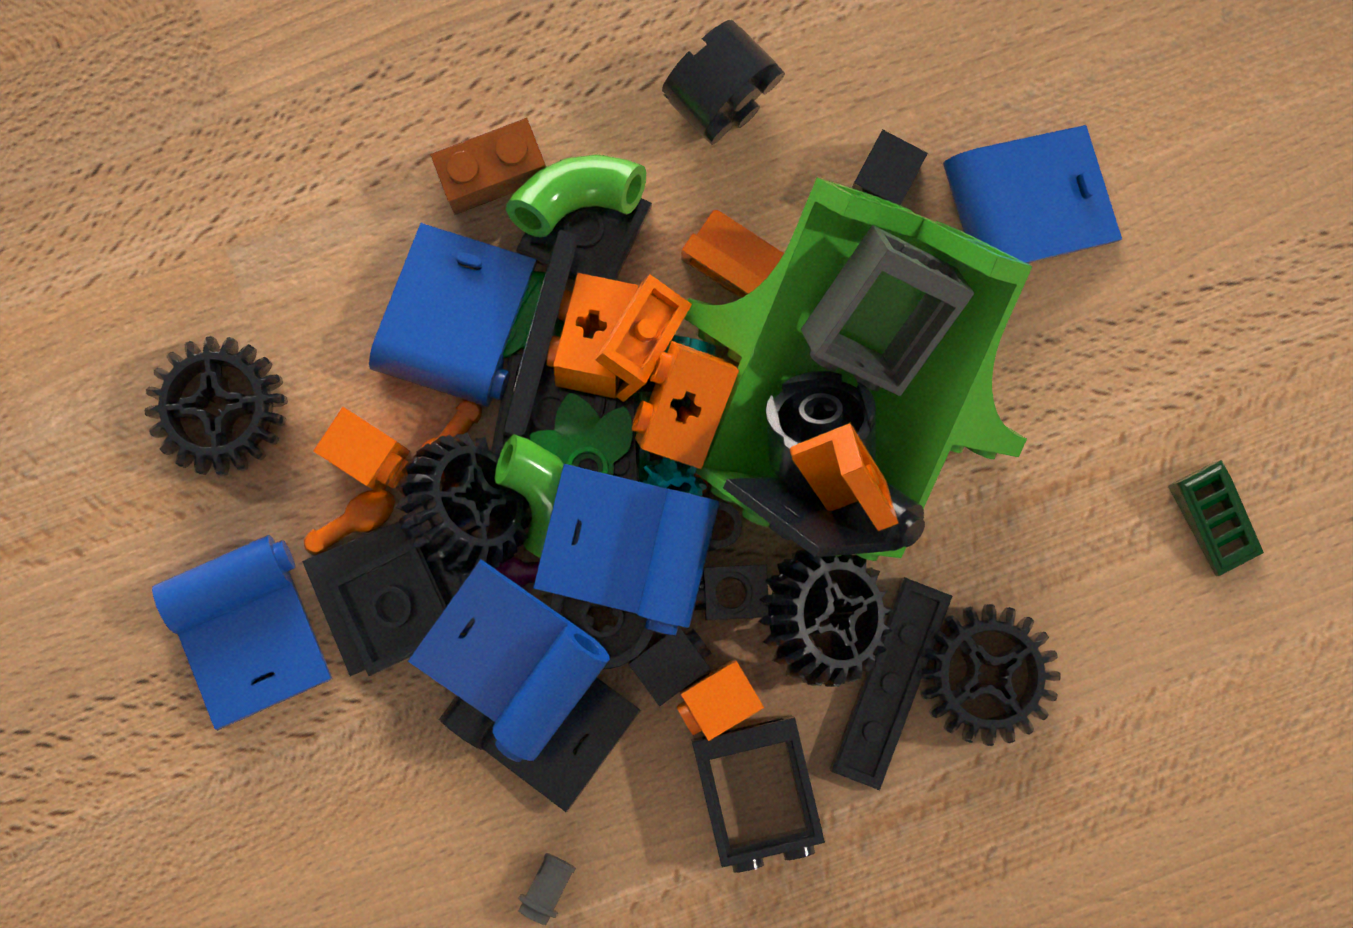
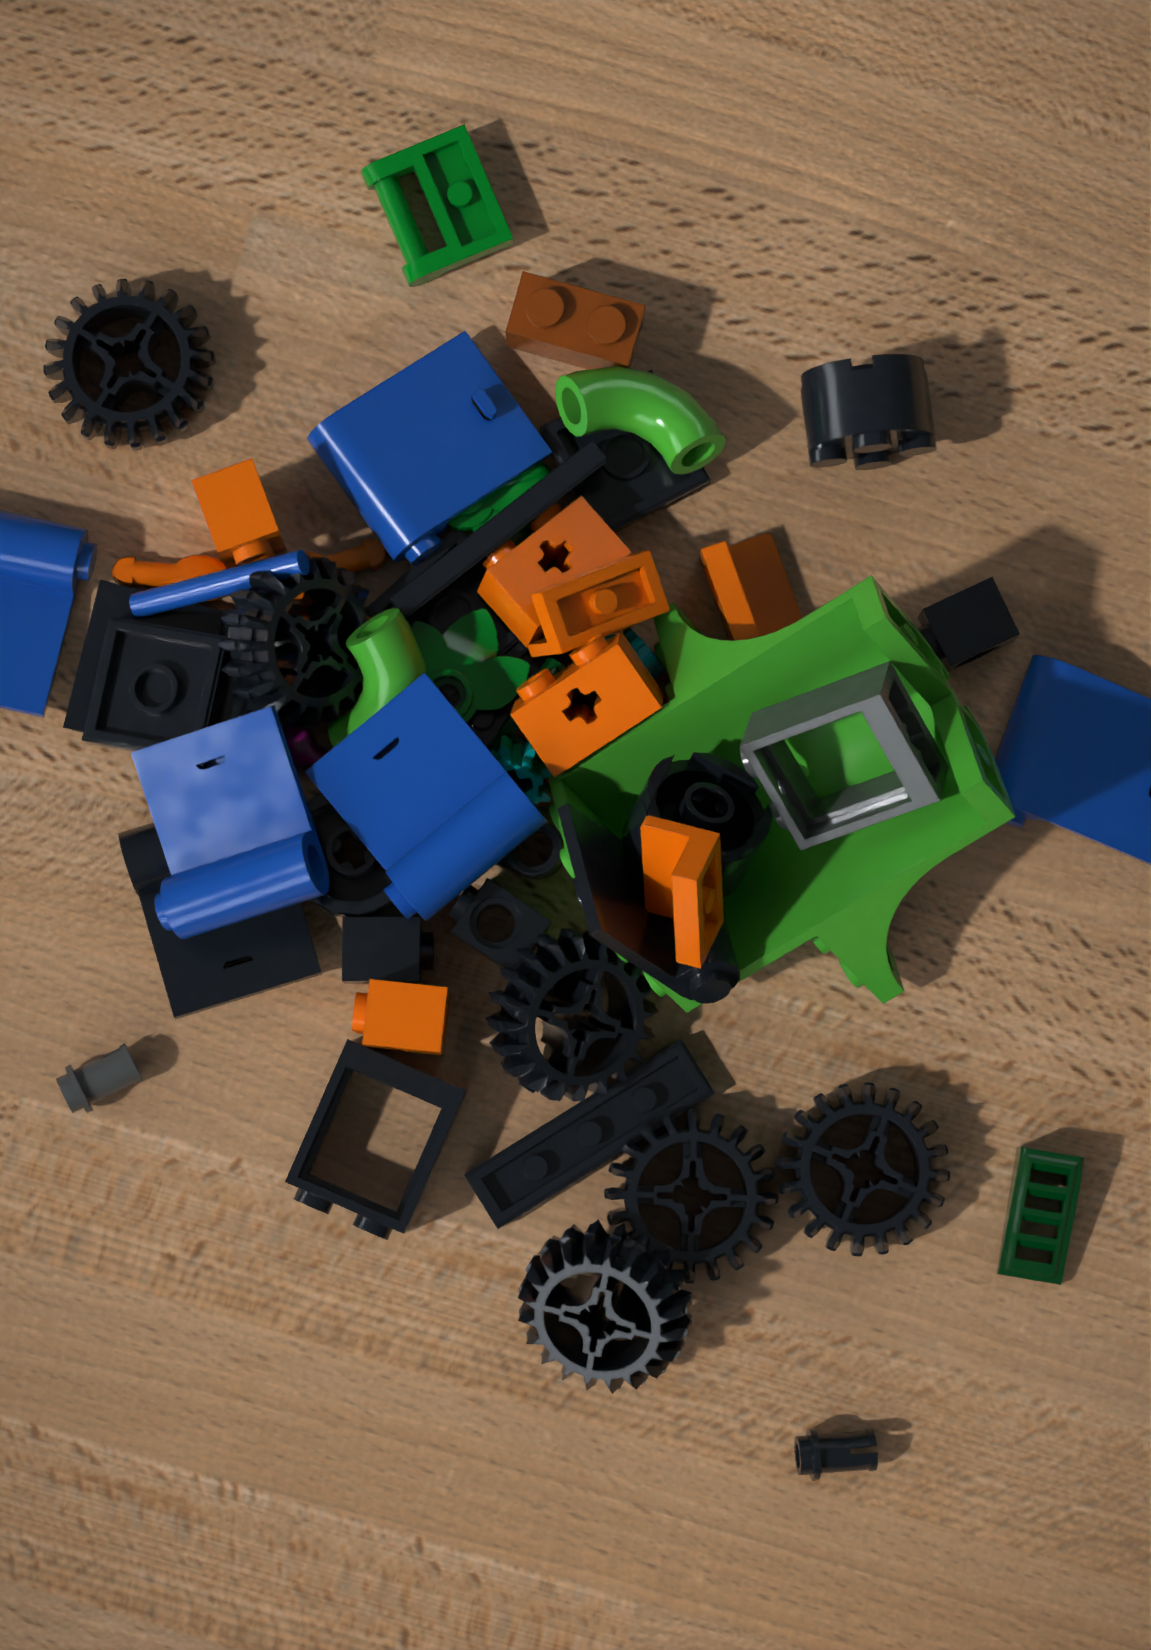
camera: 40 degrees right, 0 degrees up
(349, 140) = (456, 195): none -> green plate
(381, 508) = (215, 584): none -> blue bar
(1021, 776) = (638, 1300): none -> black gear
(1127, 563) = (913, 1190): none -> black gear
(1204, 770) = (832, 1454): none -> black pin

